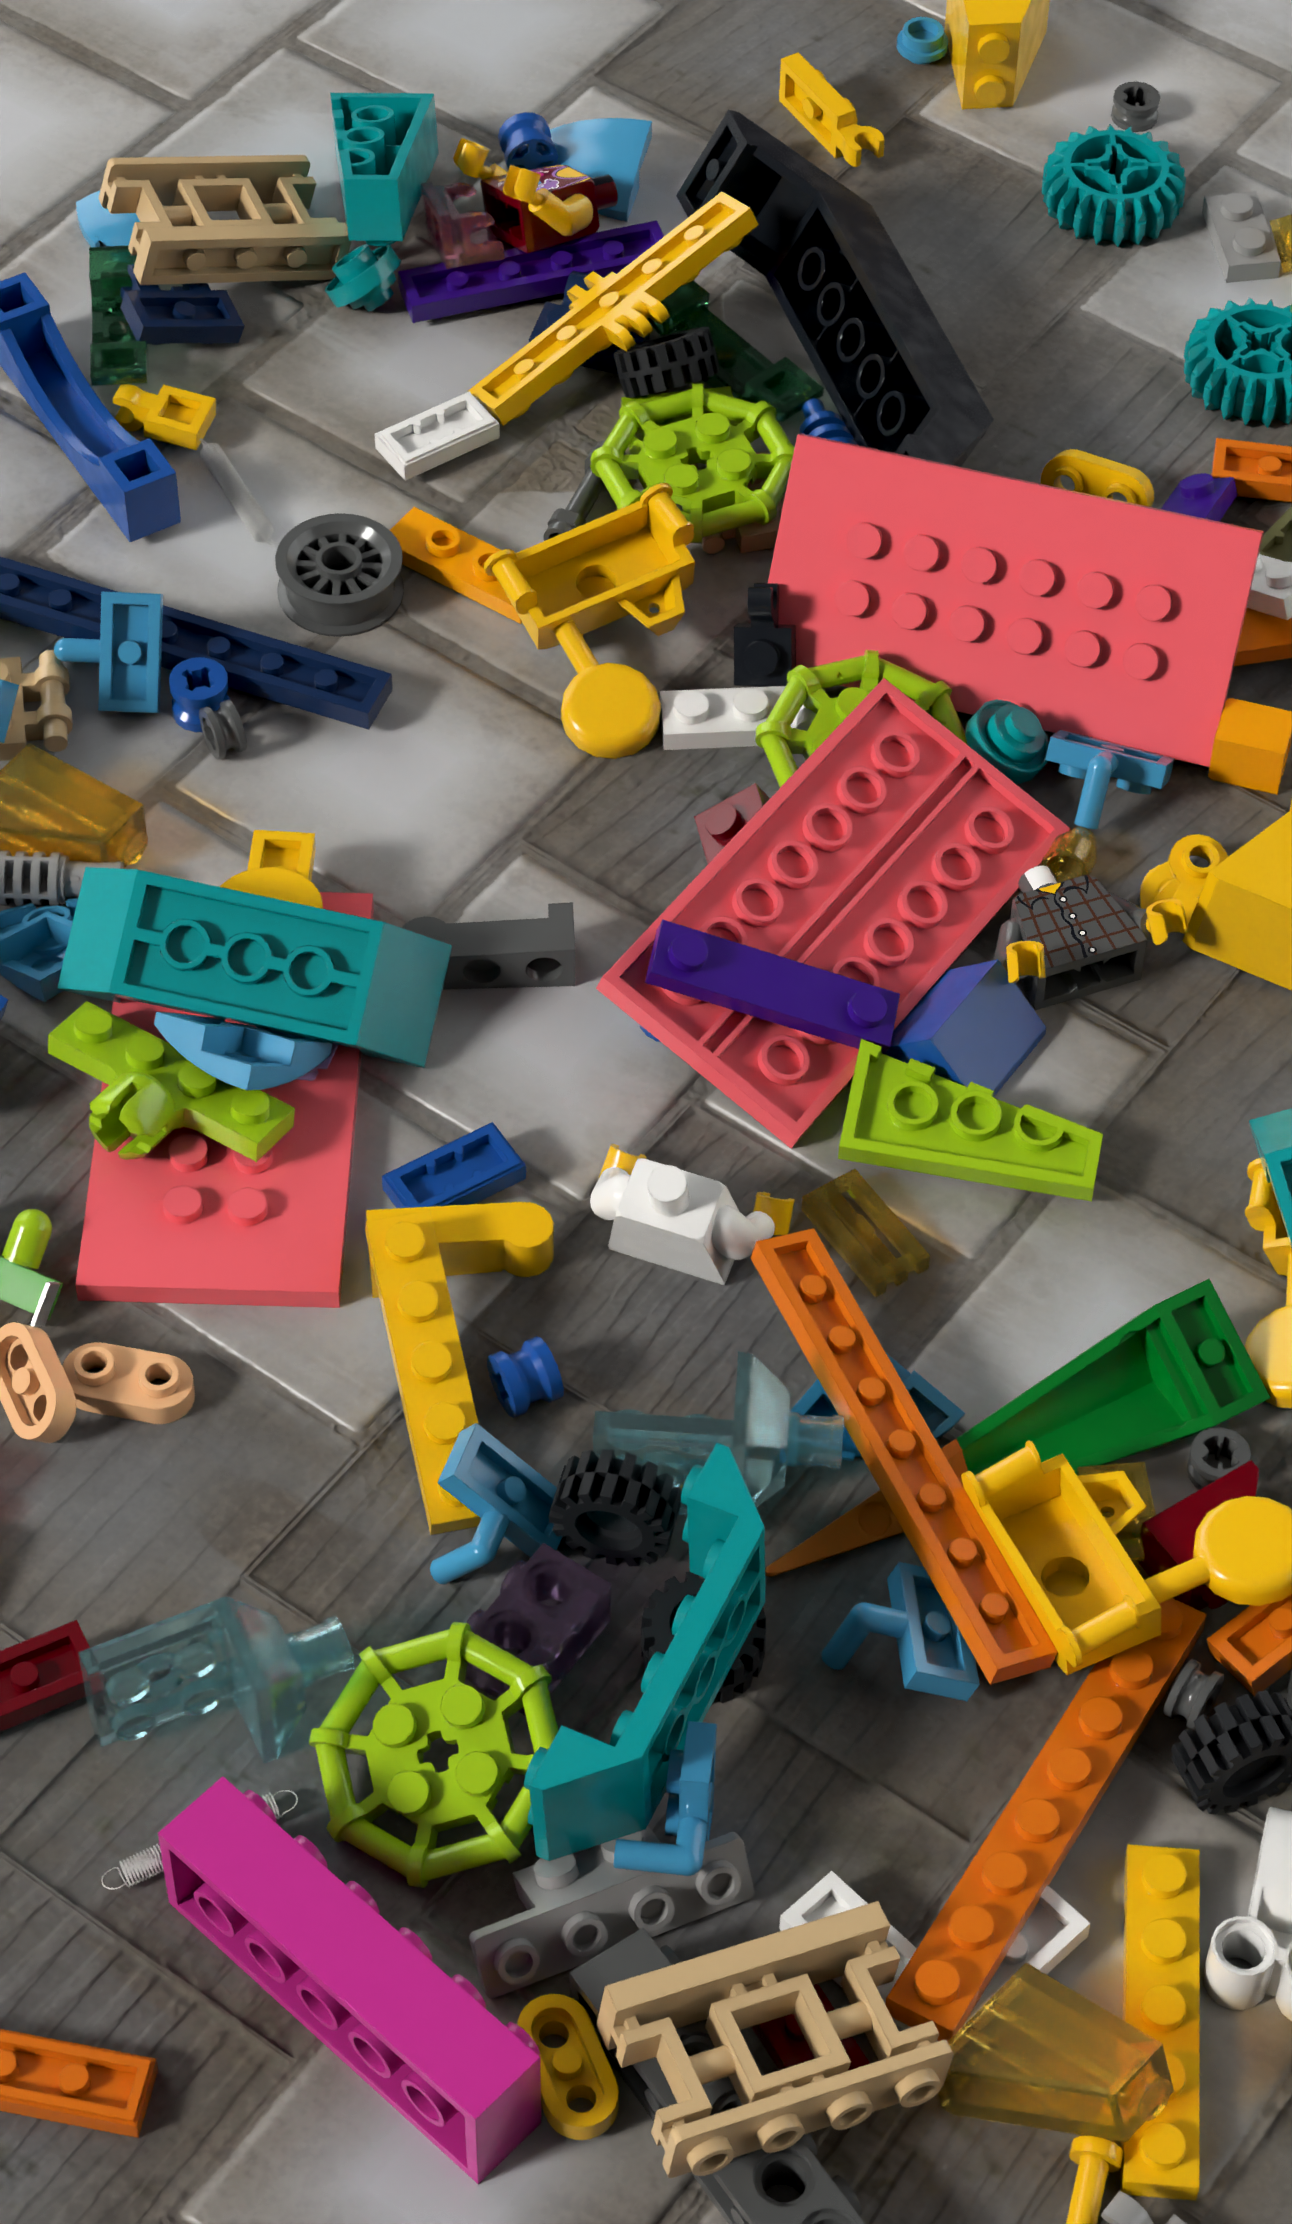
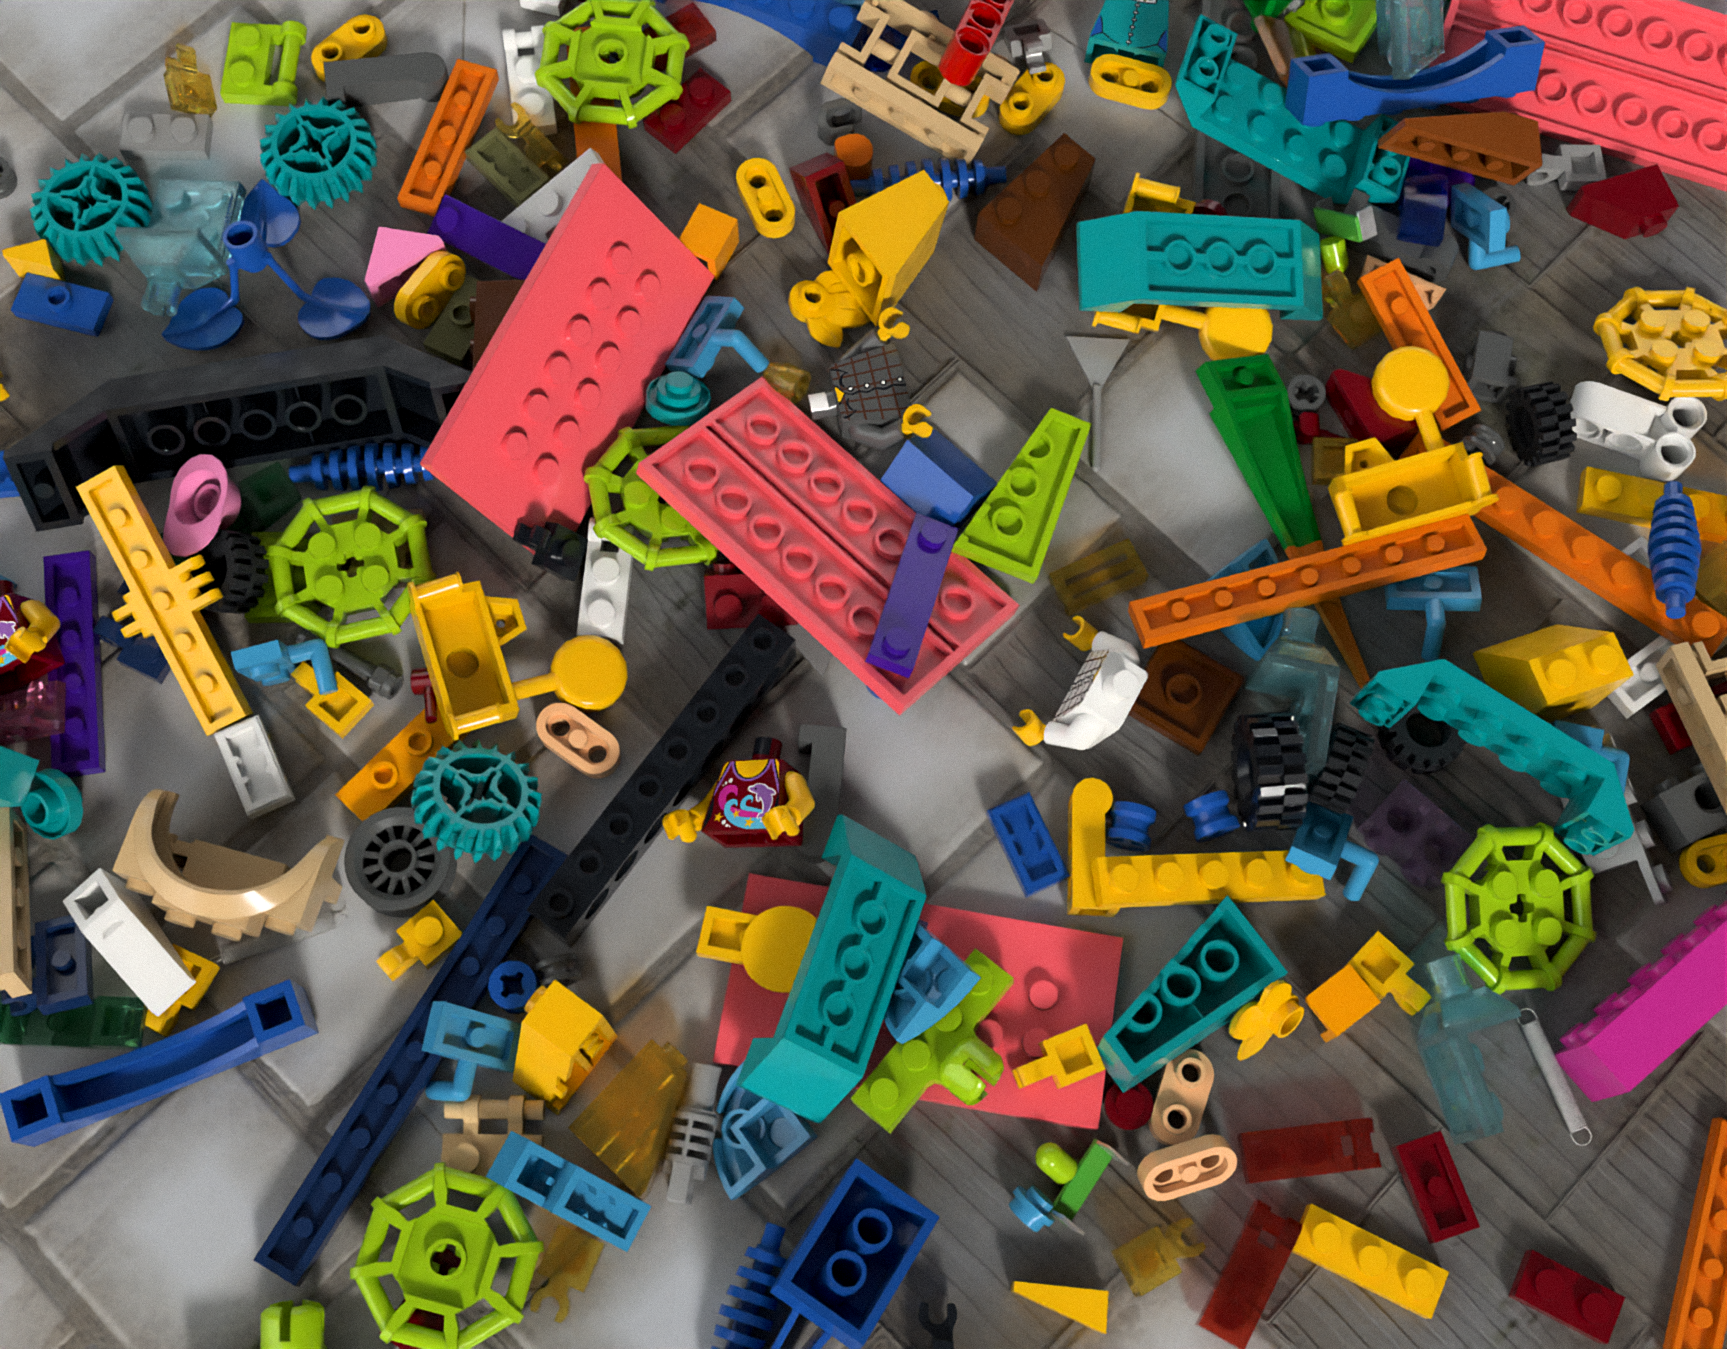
camera: 85 degrees left, 20 degrees up
(65, 1526) = (1307, 1151): none -> clear red plate
(111, 1318) = (1128, 1109): none -> dark red plate
(132, 714) = (559, 1045): none -> yellow wedge
(157, 1222) = (1066, 1058): none -> yellow plate
(216, 346) = (129, 940): none -> white slope
(240, 1446) = (1274, 1013): none -> yellow plate
(249, 609) = (426, 938): none -> yellow plate
(260, 1356) = (1191, 996): none -> teal wedge
(273, 1543) = (1341, 1001): none -> light orange panel
(285, 427) = (219, 883): none -> tan piece
(333, 1589) = (1385, 970): none -> yellow plate
(385, 597) = (487, 823): none -> teal gear
(457, 870) = (749, 804): none -> torso
(479, 790) = (663, 781): none -> black brick
(495, 1283) = (1130, 826): none -> blue wheel
(510, 720) = (581, 740): none -> light nougat plate
(533, 489) = (336, 710): none -> yellow plate
(556, 1391) = (1269, 771): none -> black bush
(561, 425) = (274, 661): none -> dark azure plate
(695, 1339) = (1185, 694): none -> reddish brown tile
(743, 329) = (199, 505): none -> bright pink piece
(809, 1775) = (1556, 669): none -> yellow slope
(986, 190) = (62, 304): none -> blue plate
(1008, 310) = (208, 316): none -> blue plant
(1031, 154) = (35, 258): none -> yellow slope
(1056, 1923) = (1674, 549): none -> blue piece
(1093, 271) = (183, 239): none -> clear light blue plate
(1126, 440) = (395, 259): none -> bright pink slope
(1166, 1468) = (1309, 427): none -> dark red hand
(1211, 1208) = (1097, 360): none -> light grey piece

